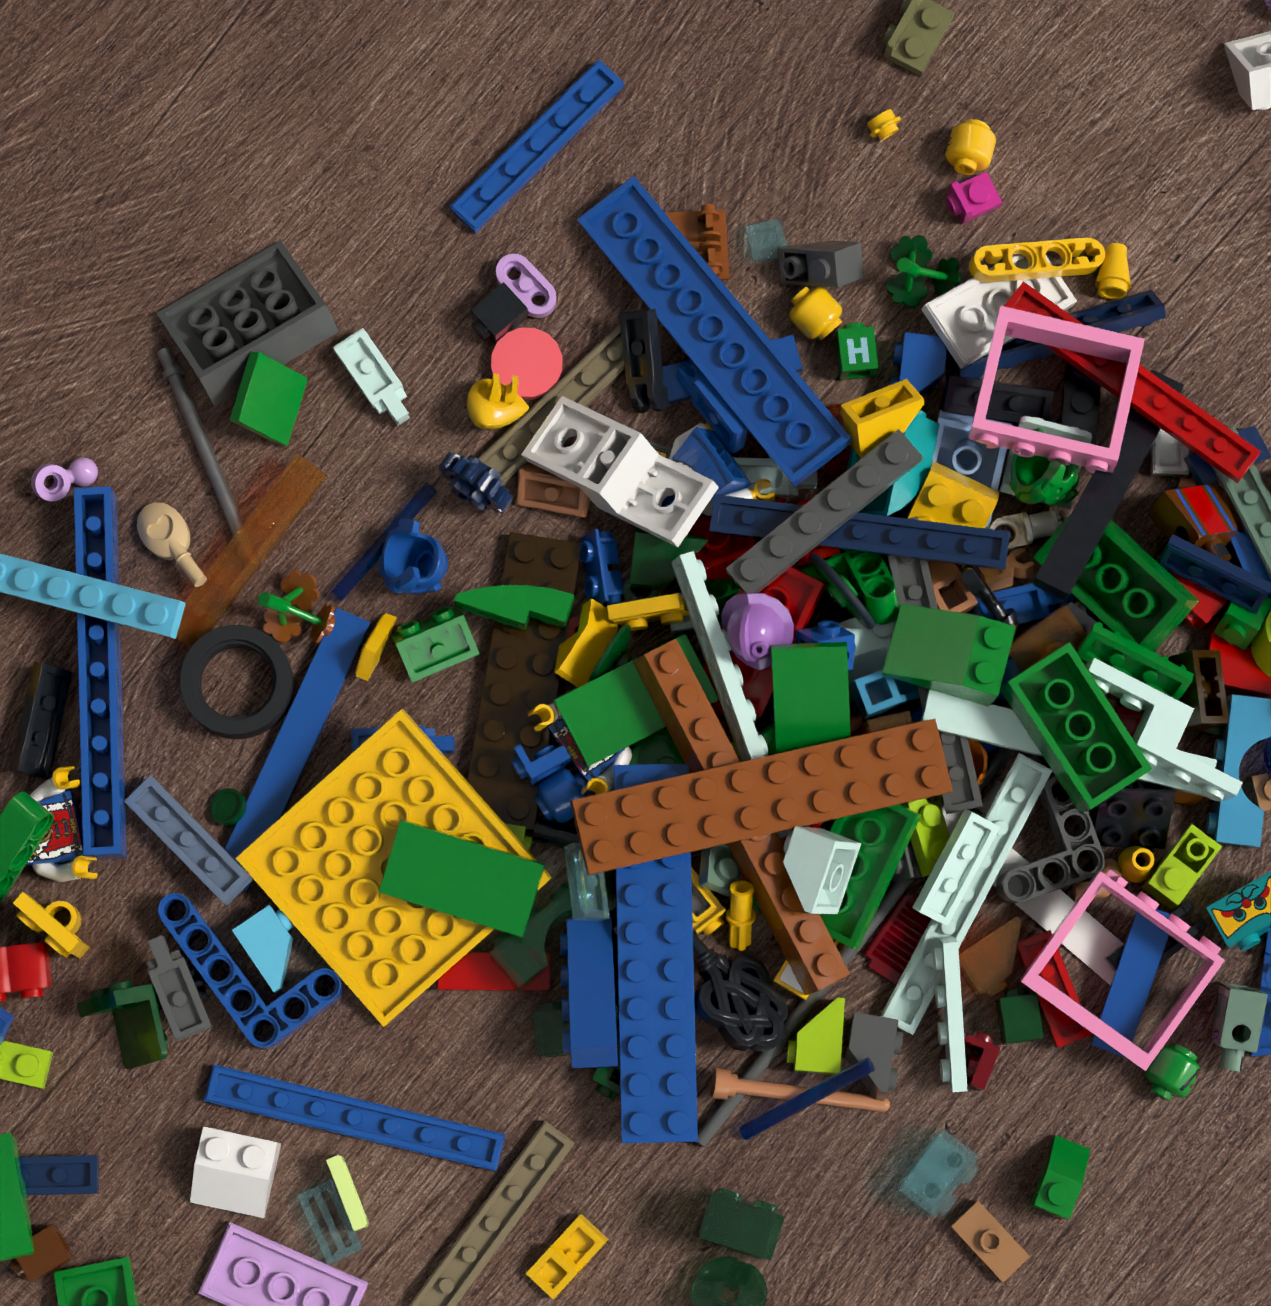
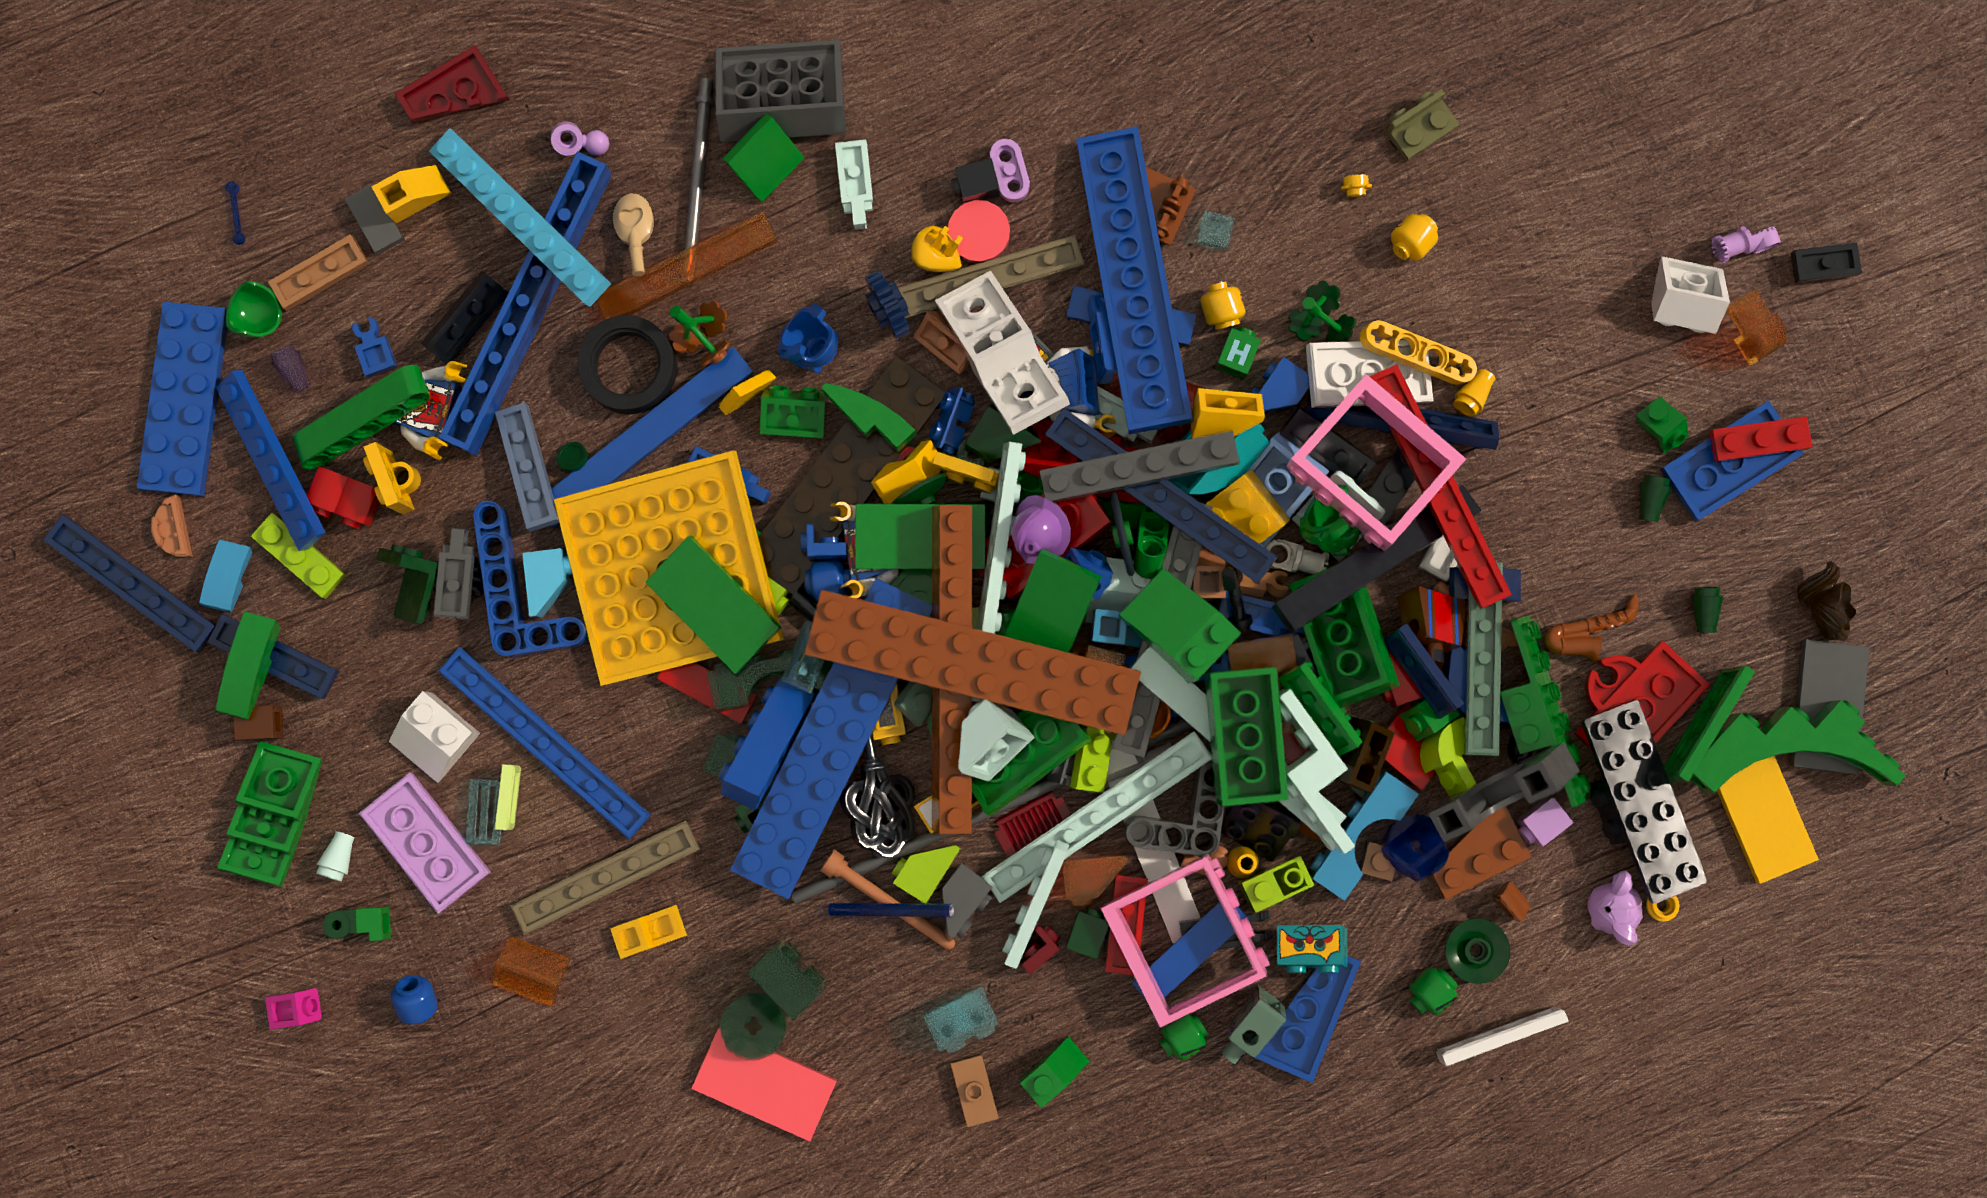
camera: 30 degrees right, 5 degrees up
(371, 556) = (780, 320): clear blue bar -> none
(536, 146) = (1076, 65): blue tile -> none
(643, 360) = (1067, 275): black hinge -> none
(740, 914) = (915, 742): yellow axle -> none
(821, 263) = (1247, 269): dark grey slope -> none
(956, 867) = (1098, 794): light aqua plate -> none
(972, 198) = (1395, 278): dark pink bracket -> none

